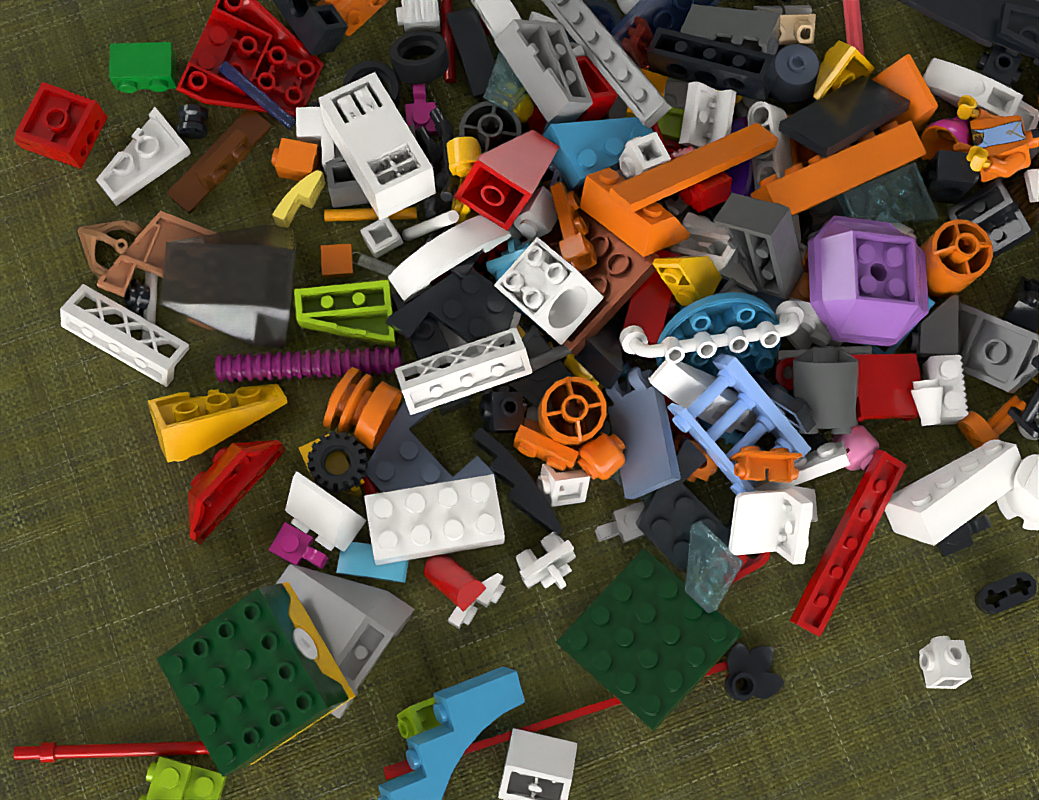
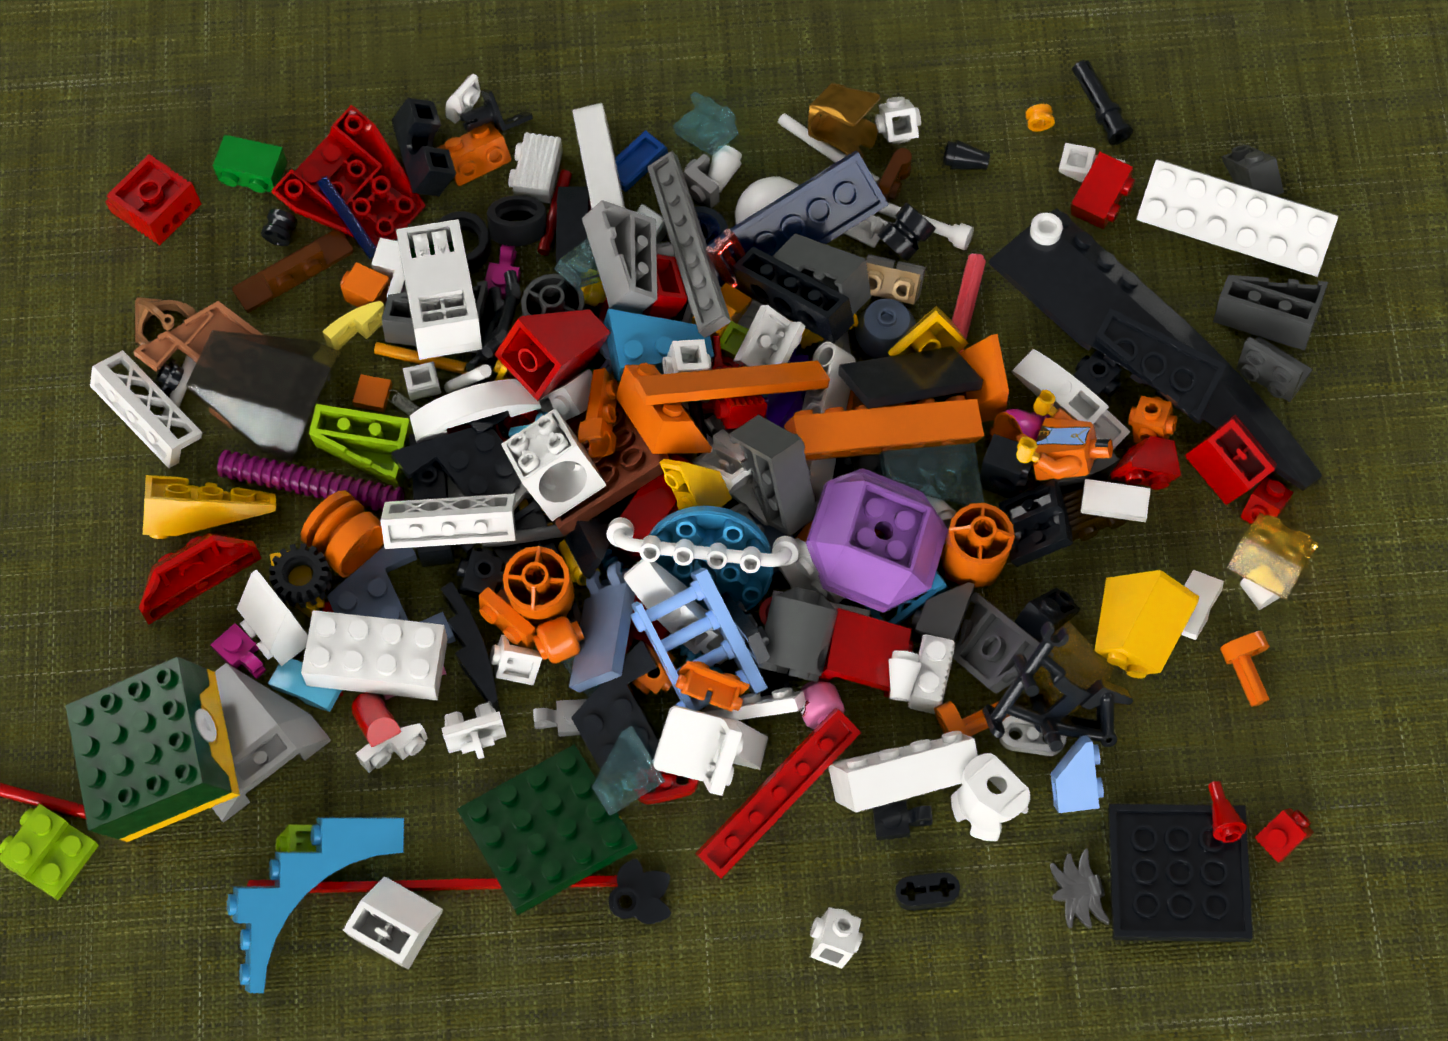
camera: 25 degrees right, 10 degrees down
(145, 158) = (225, 250): white wing -> none
(462, 155) = (510, 311): yellow plate -> none

